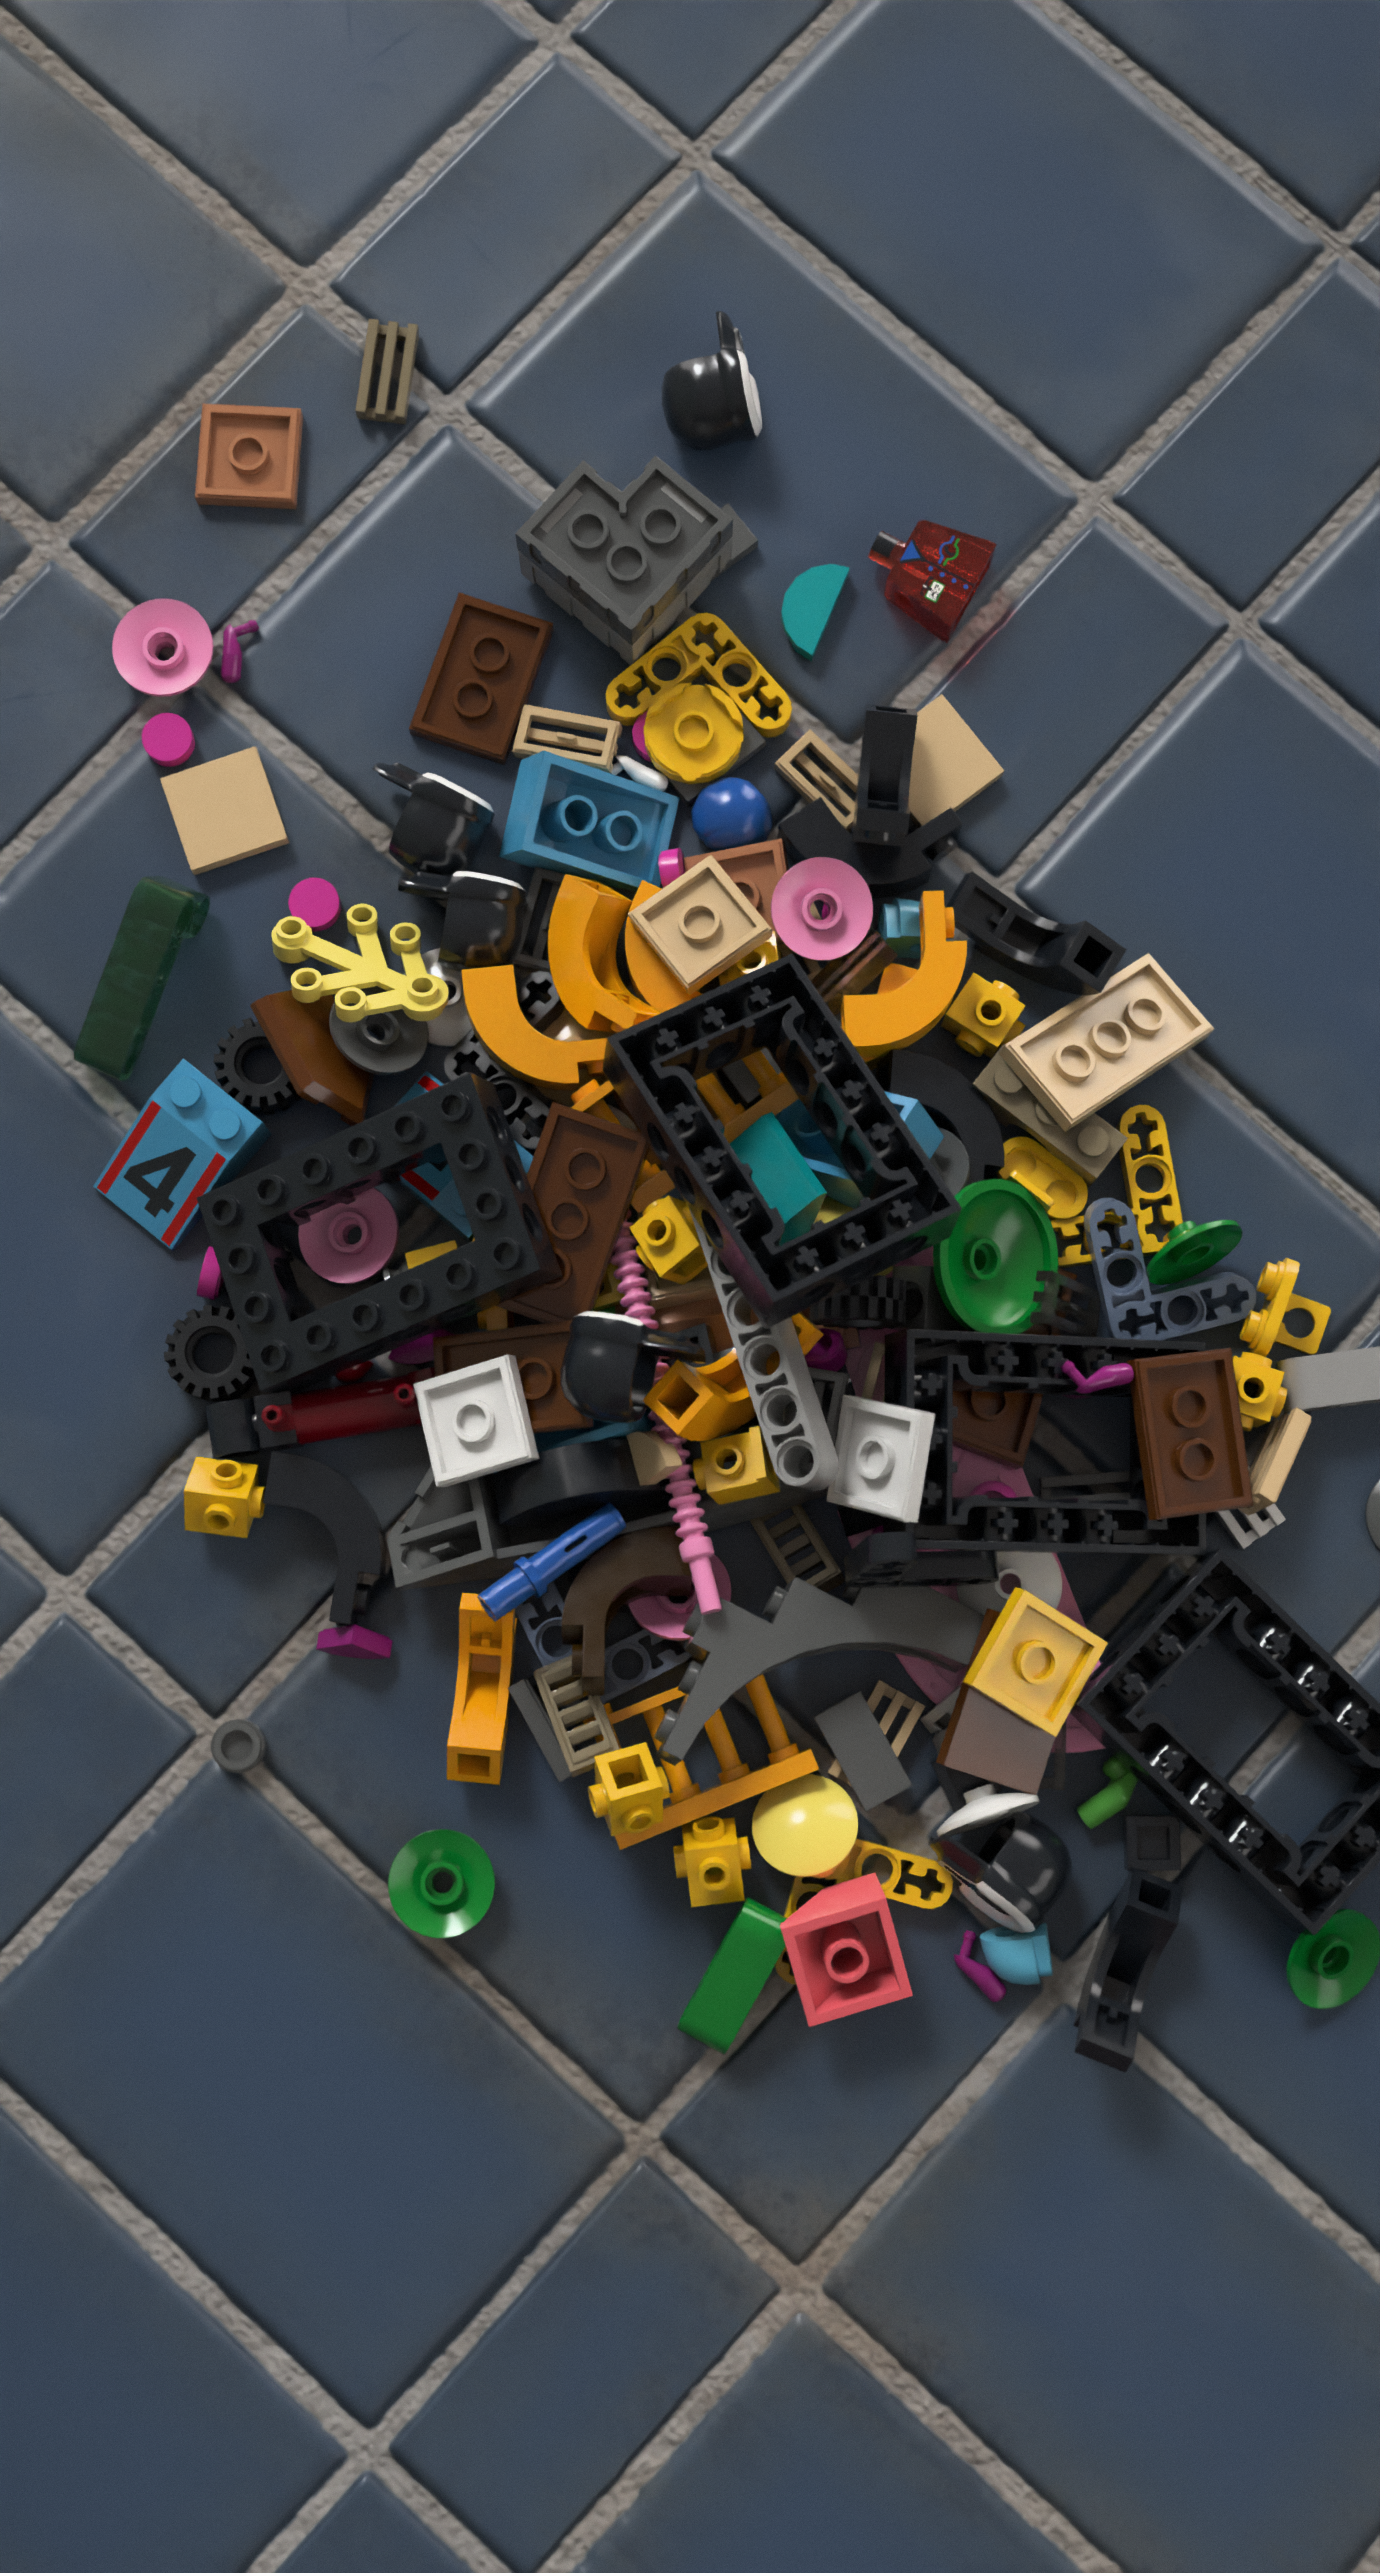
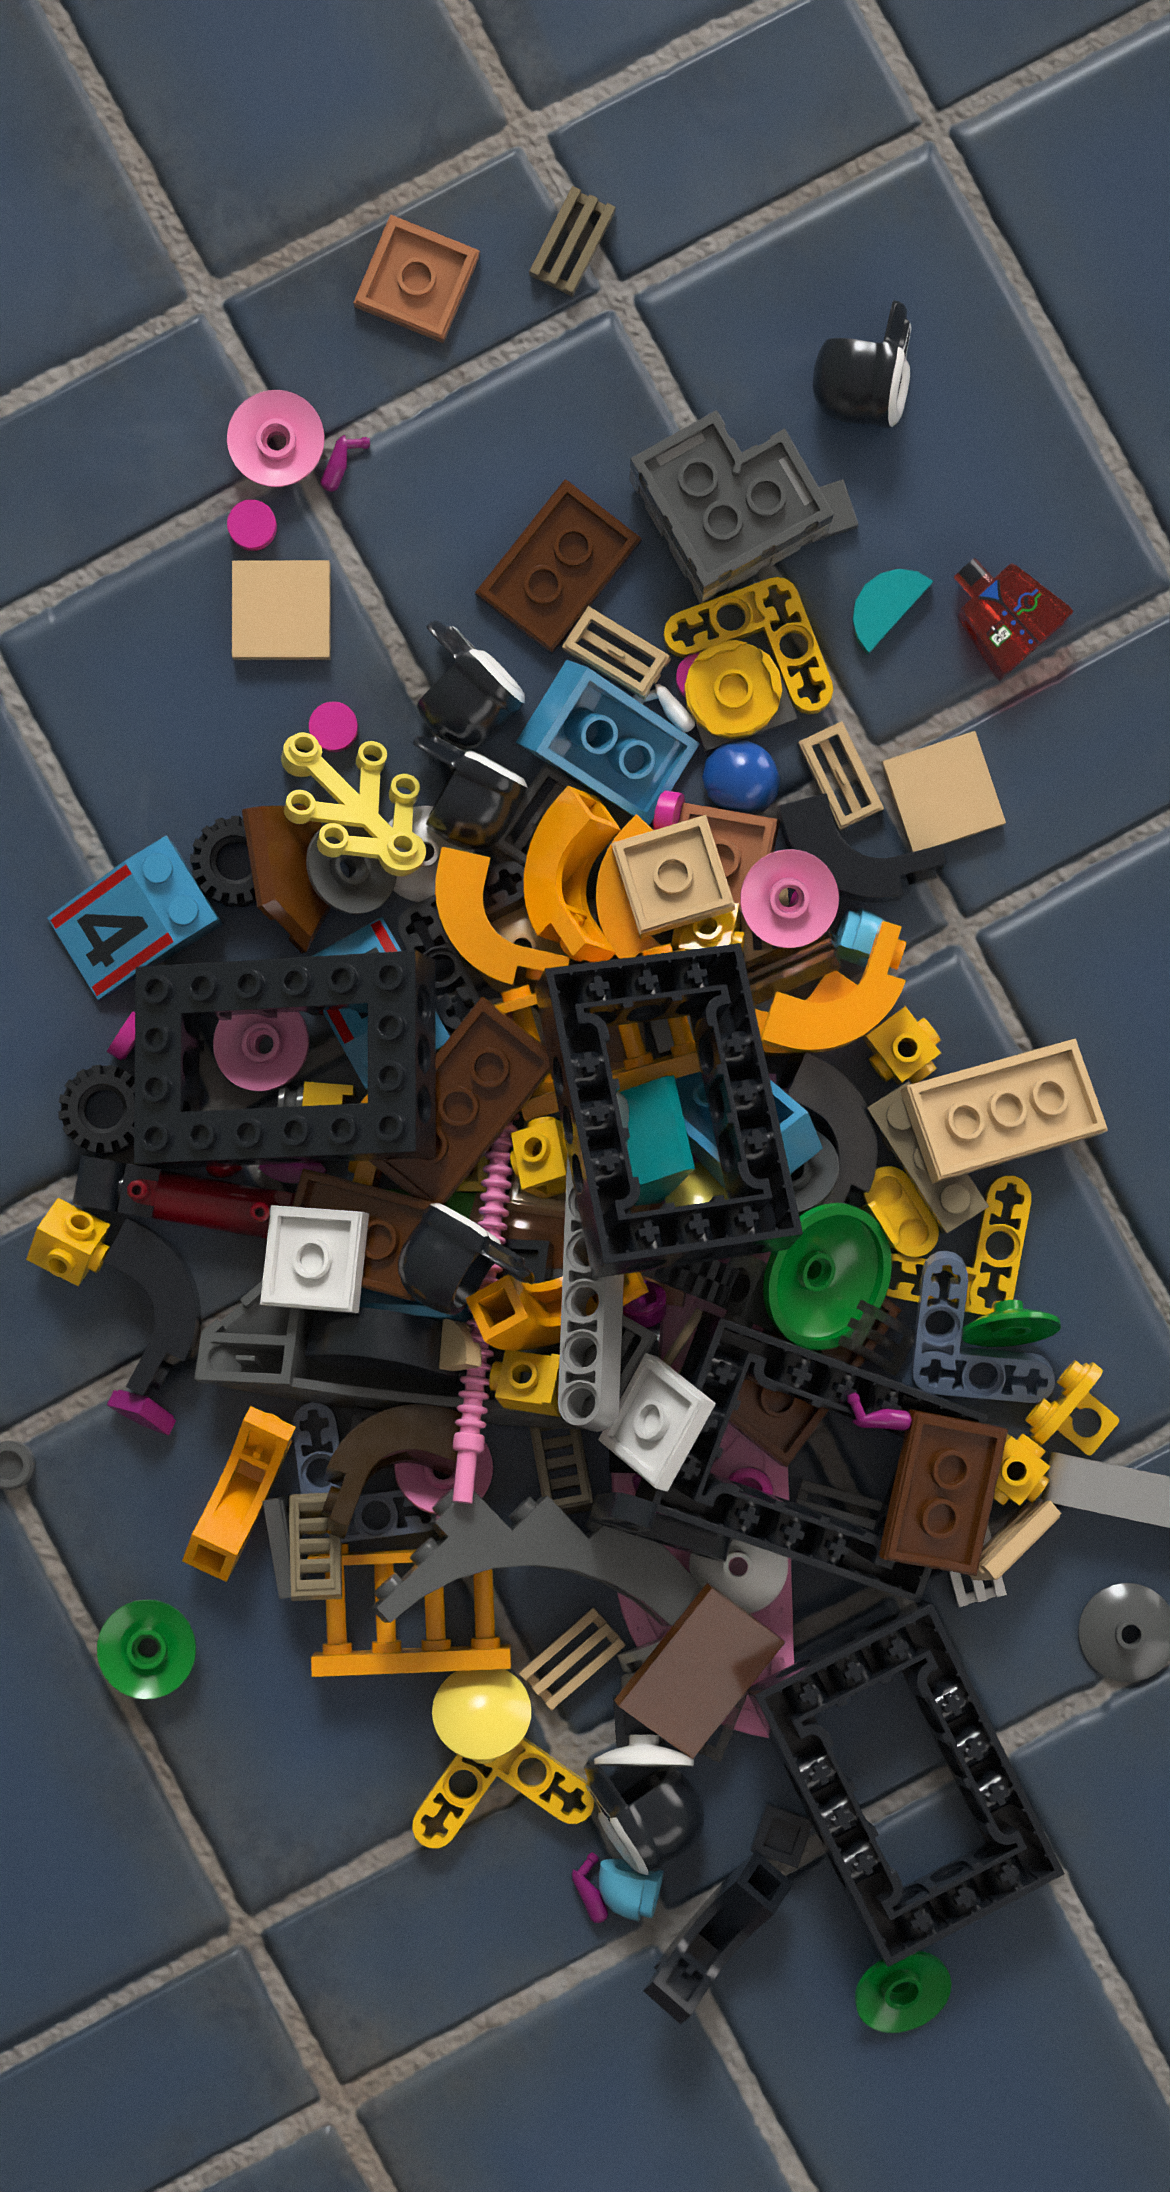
camera: 20 degrees right, 5 degrees up
(137, 973) = (152, 737): clear green beam -> none
(542, 1568) = (337, 1408): blue pin -> none
(628, 1789) = (336, 1629): yellow brick -> none
(712, 1861) = (389, 1714): yellow brick -> none
(734, 1977) = (375, 1820): green beam -> none
(845, 1951) = (476, 1834): coral slope -> none
(862, 1751) = (555, 1665): dark grey tile -> none
(884, 775) = (890, 795): black arch -> none
(1035, 1661) = (731, 1645): yellow plate -> none
(1054, 954) = (969, 994): black arch -> none
(1110, 1799) = (760, 1784): bright green arm -> none

